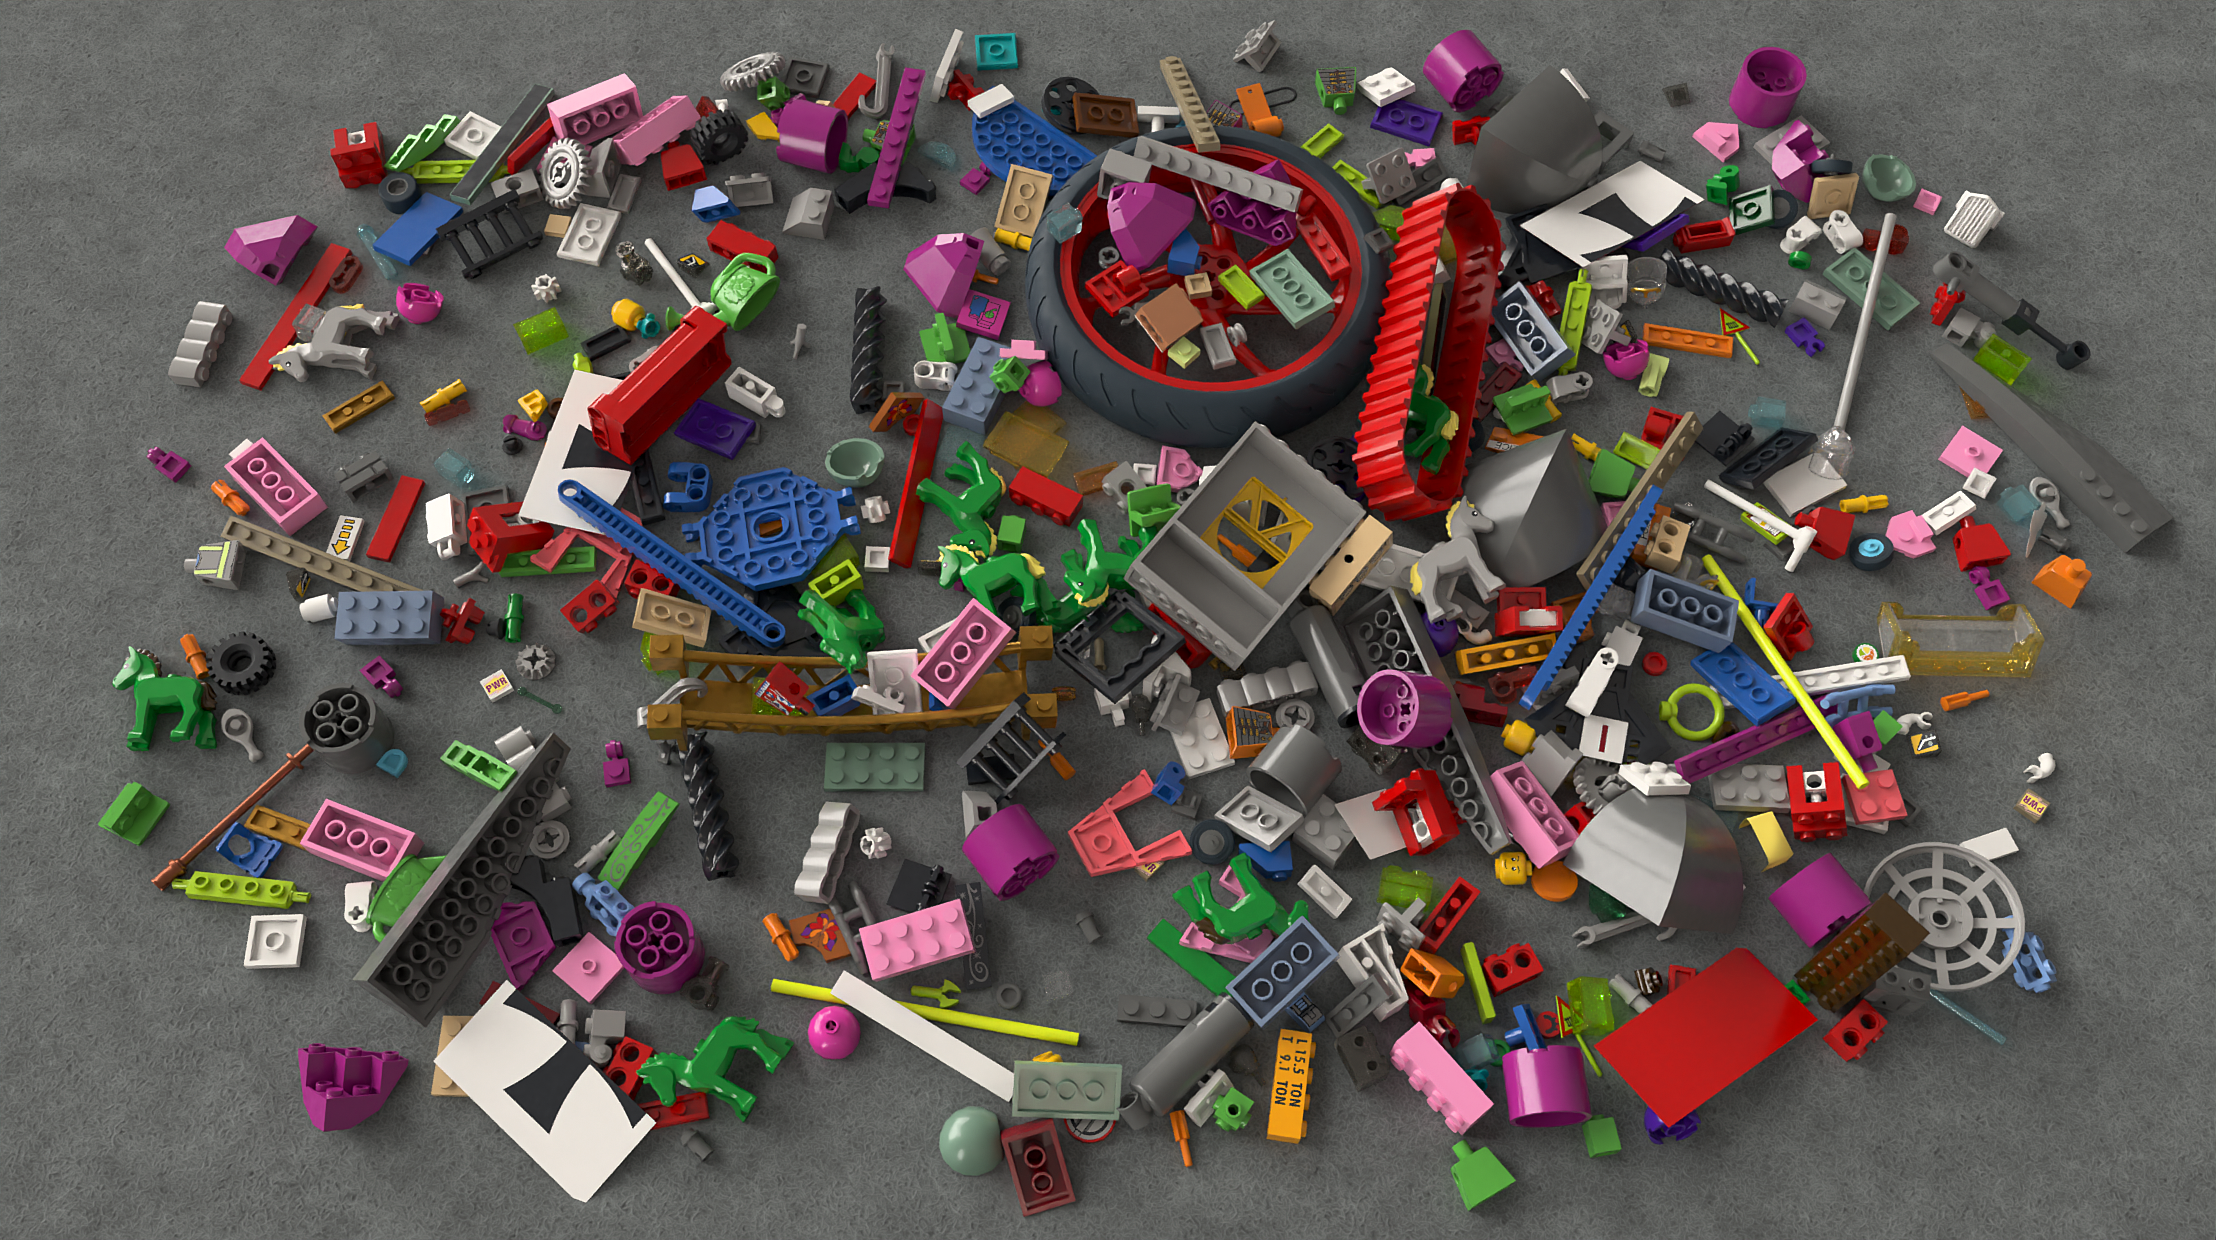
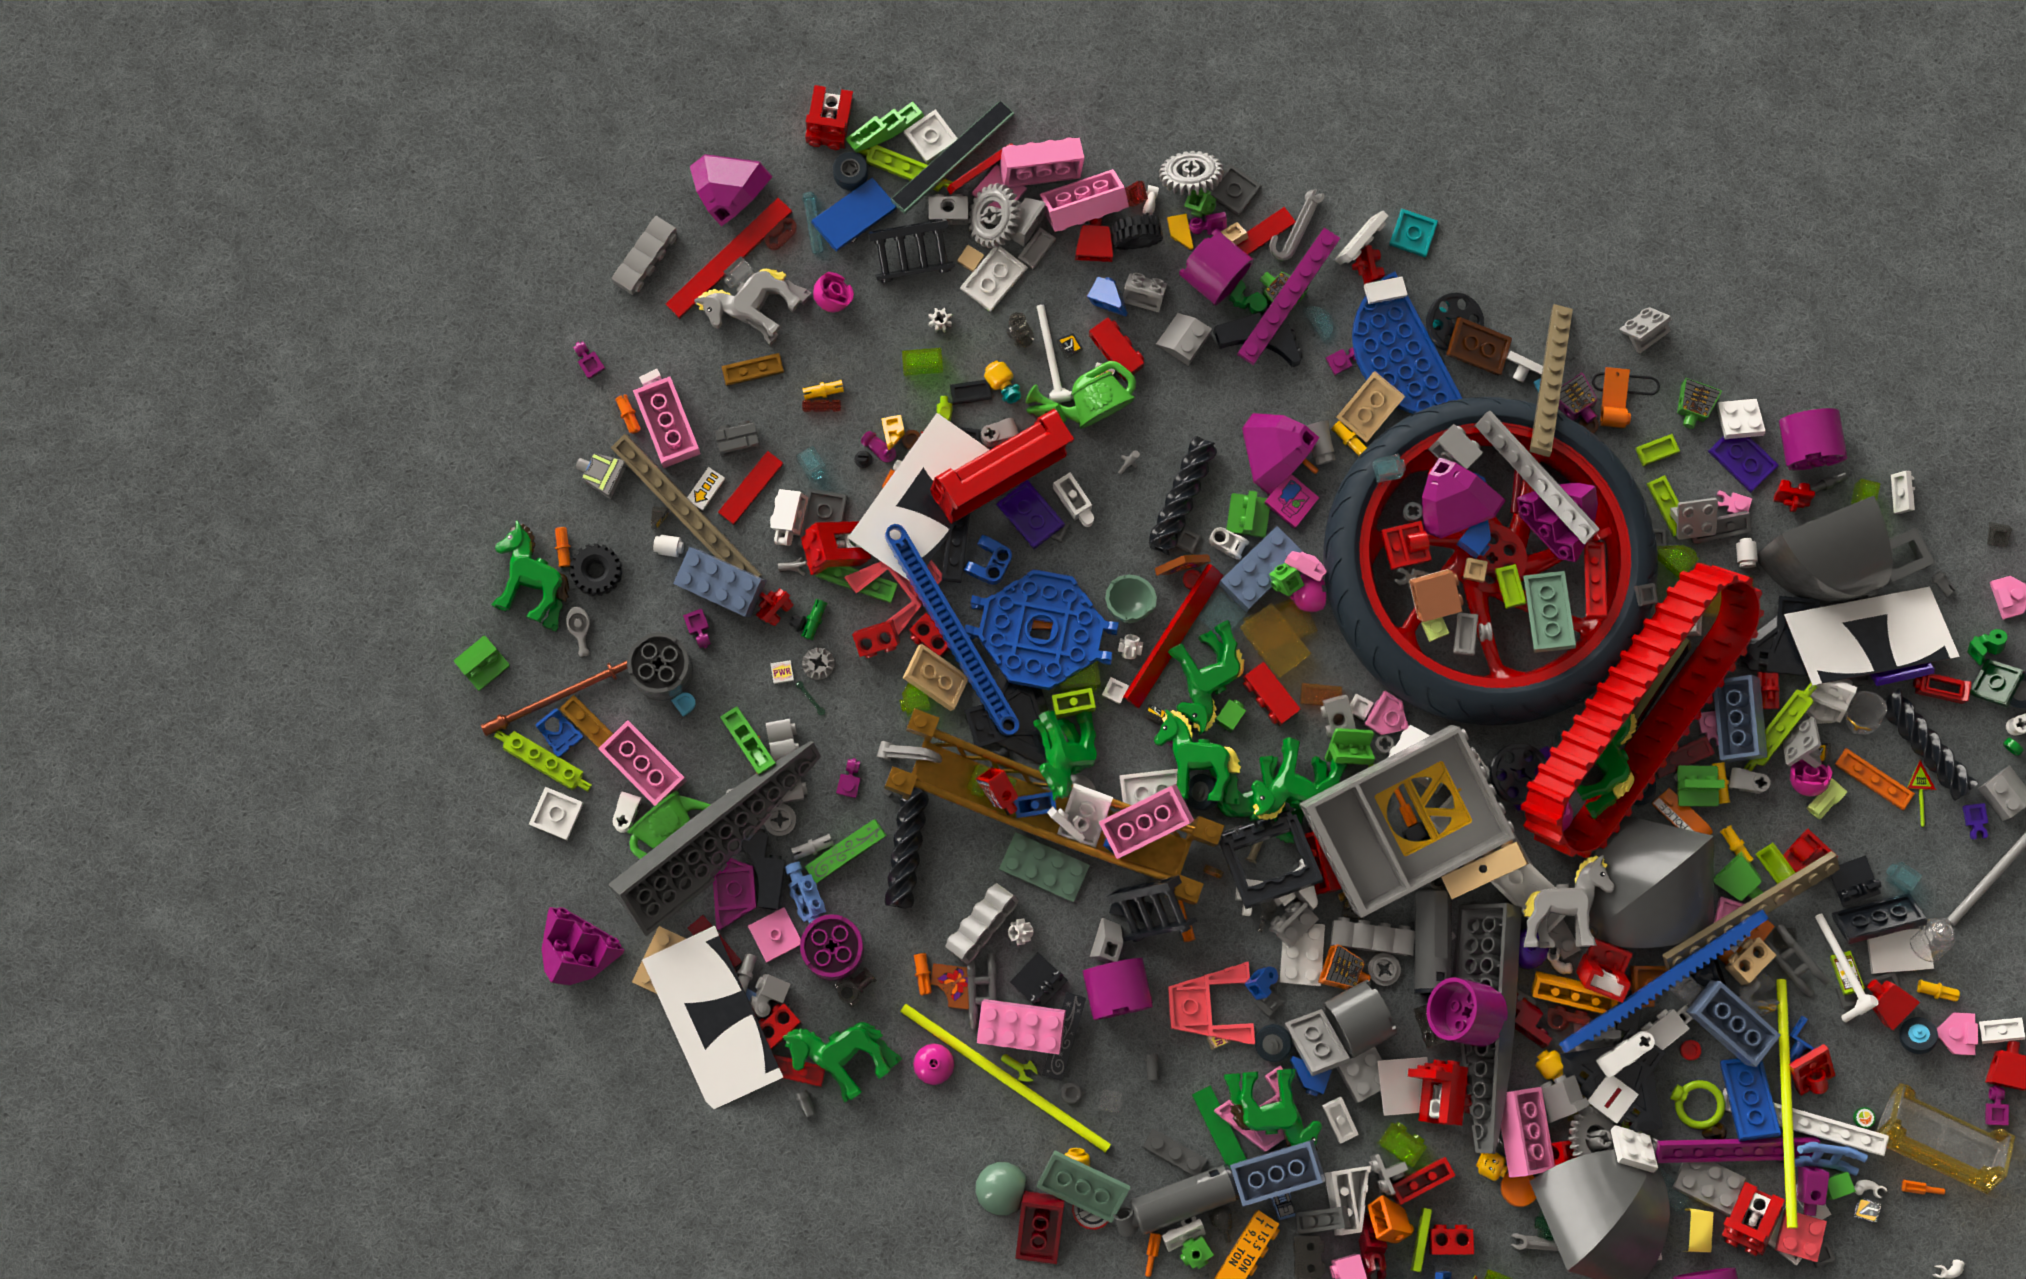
camera: 20 degrees right, 15 degrees up
(925, 1035) = (998, 1096): white tile -> none

